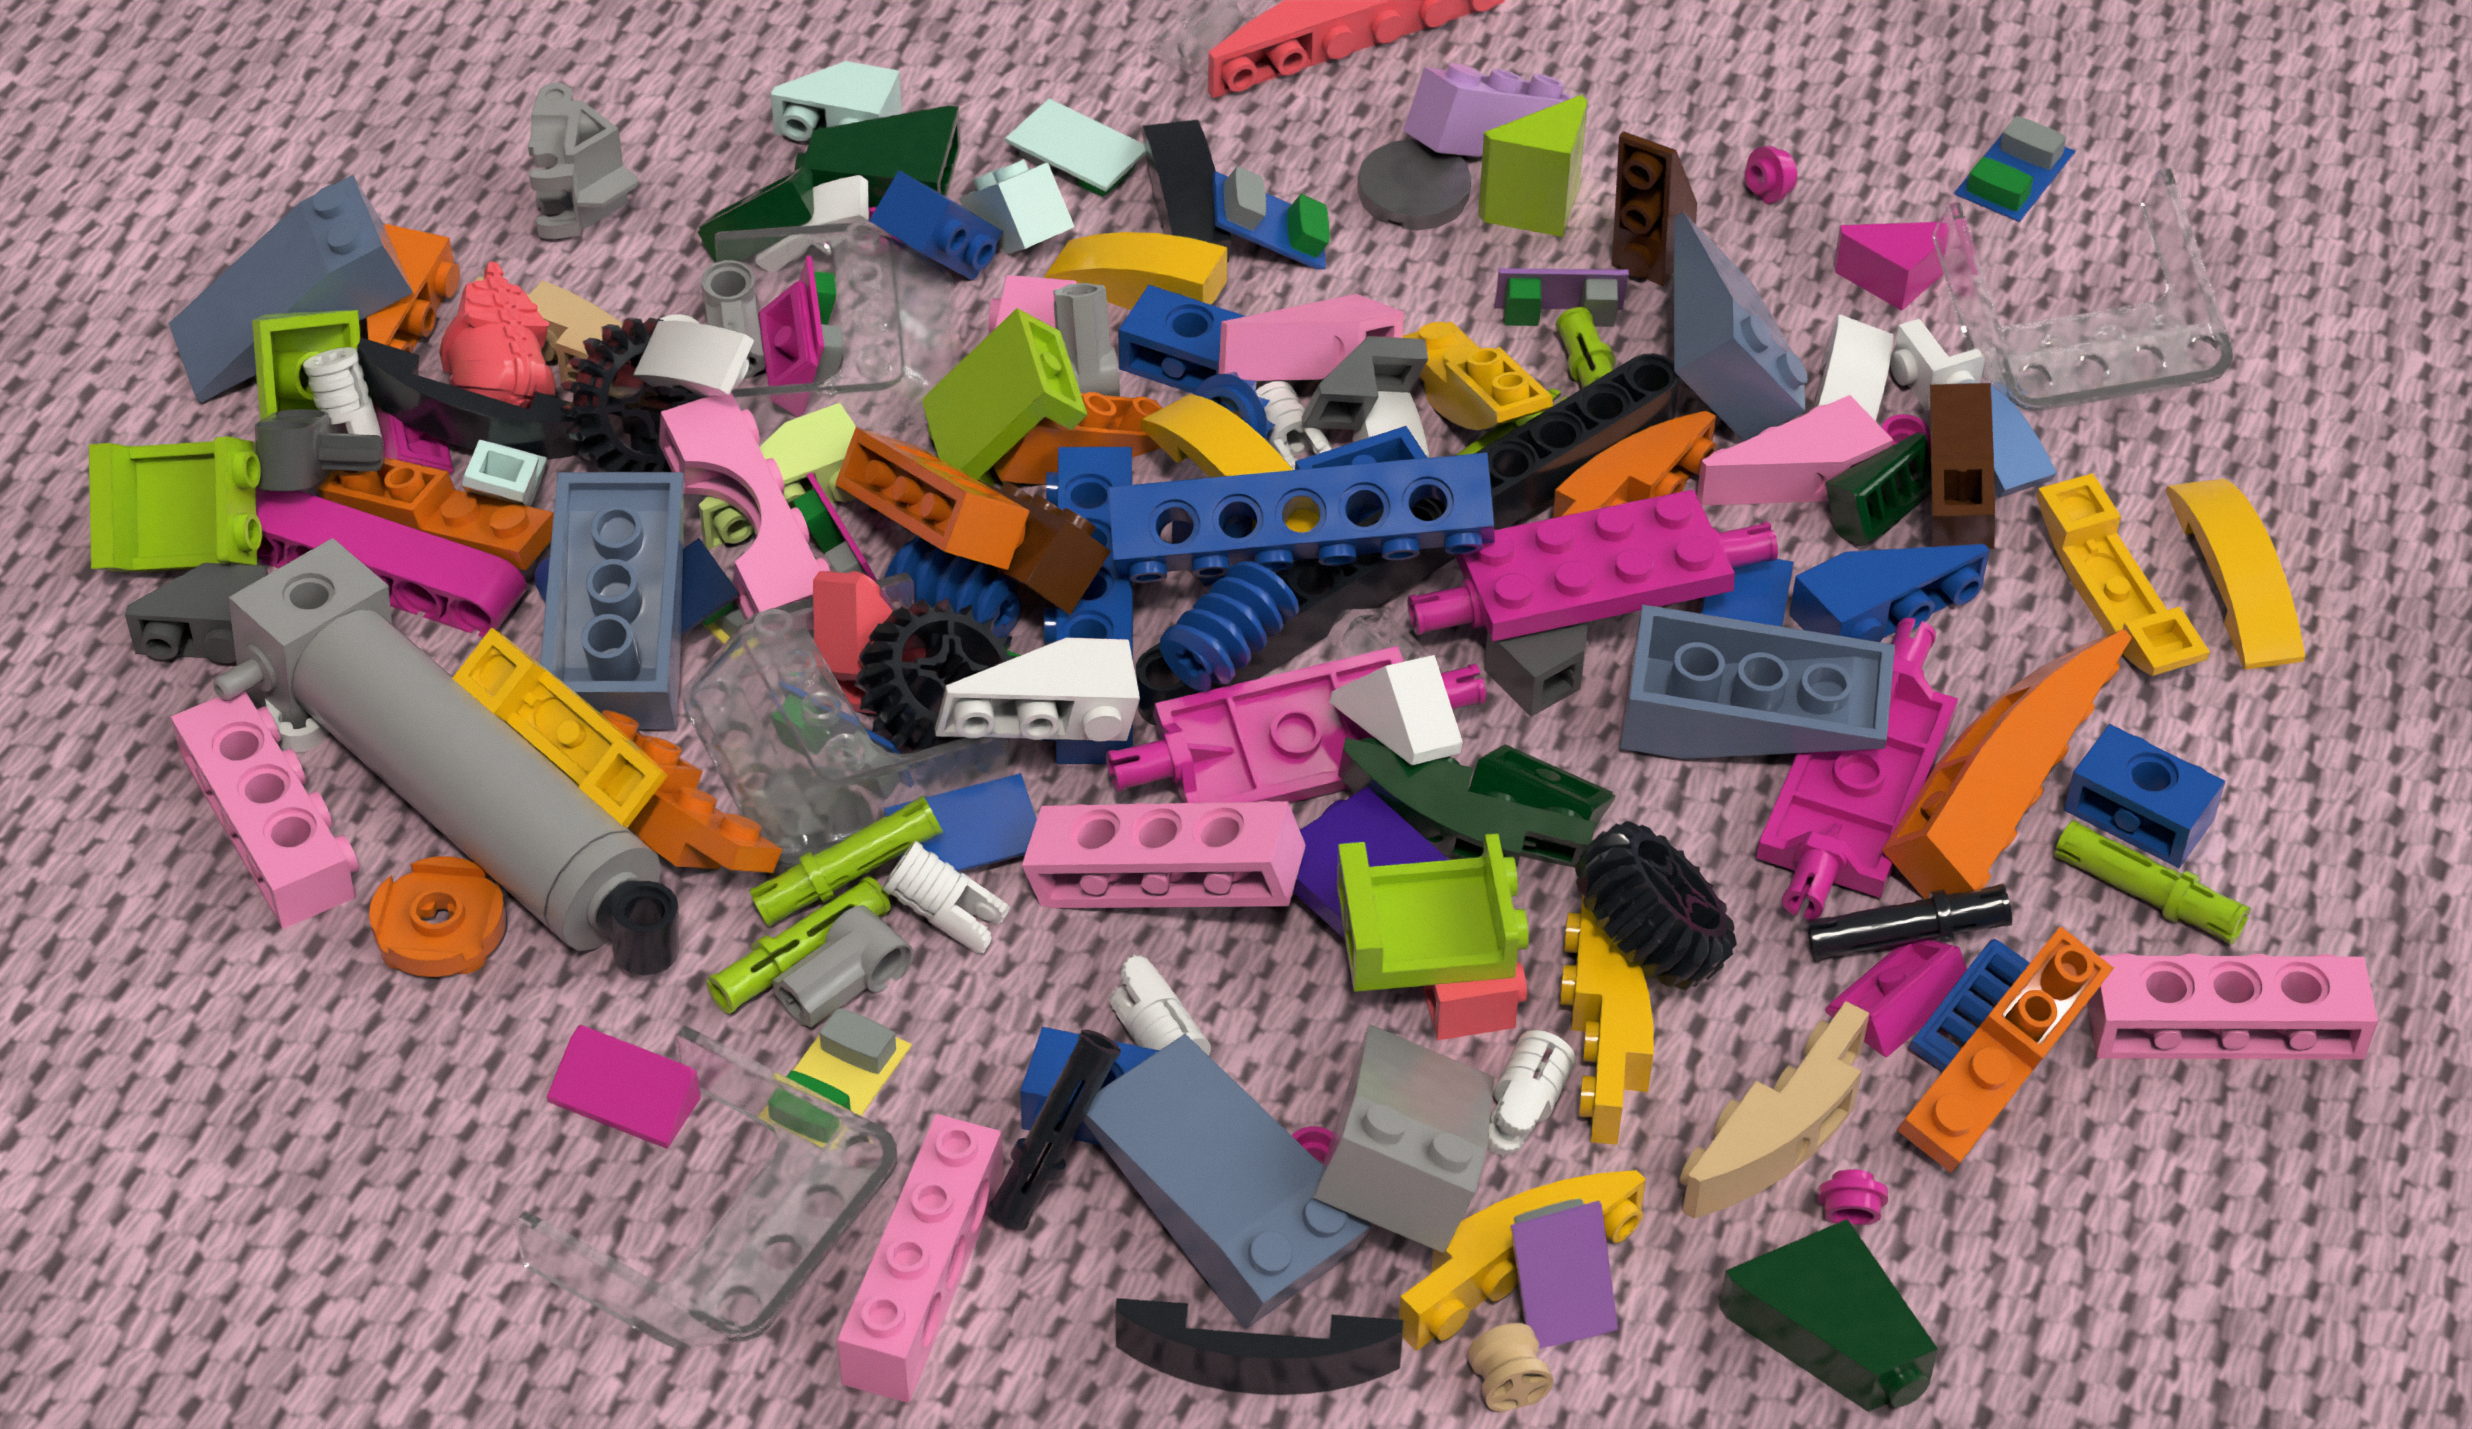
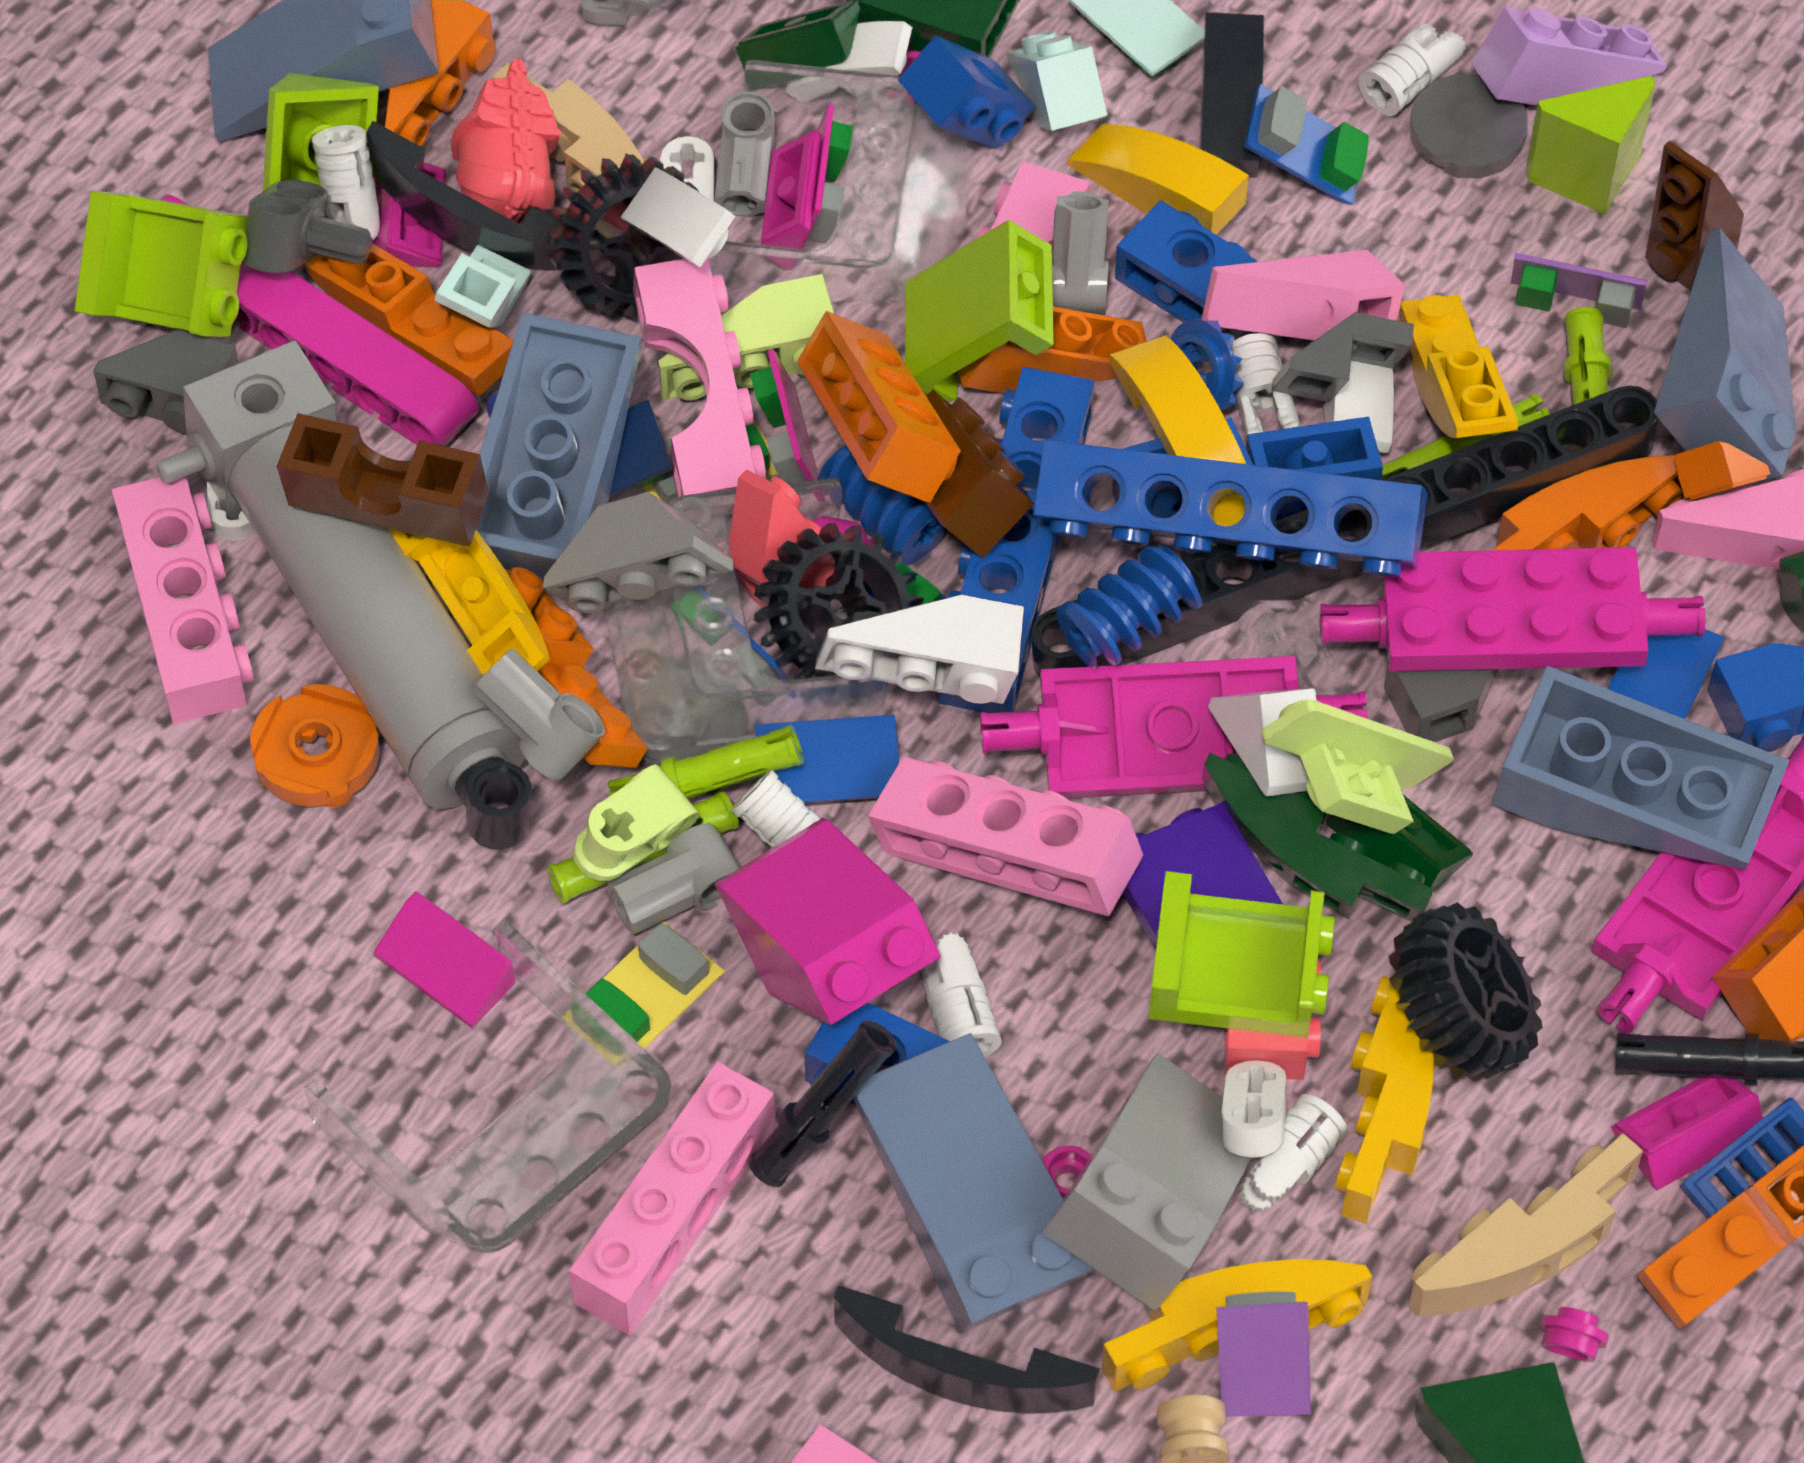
camera: 15 degrees right, 10 degrees up
(413, 641) = (337, 474): none -> reddish brown arch
(684, 836) = (551, 726): none -> light grey piece
(725, 667) = (631, 553): none -> light grey slope
(788, 916) = (632, 825): none -> yellowish green piece
(1010, 965) = (825, 923): none -> dark pink slope
(1345, 145) = (1409, 68): none -> white hinge
(1482, 1052) = (1254, 1108): none -> white beam
(1489, 713) = (1356, 762): none -> yellowish green bracket
(1744, 413) = (1716, 469): none -> orange slope

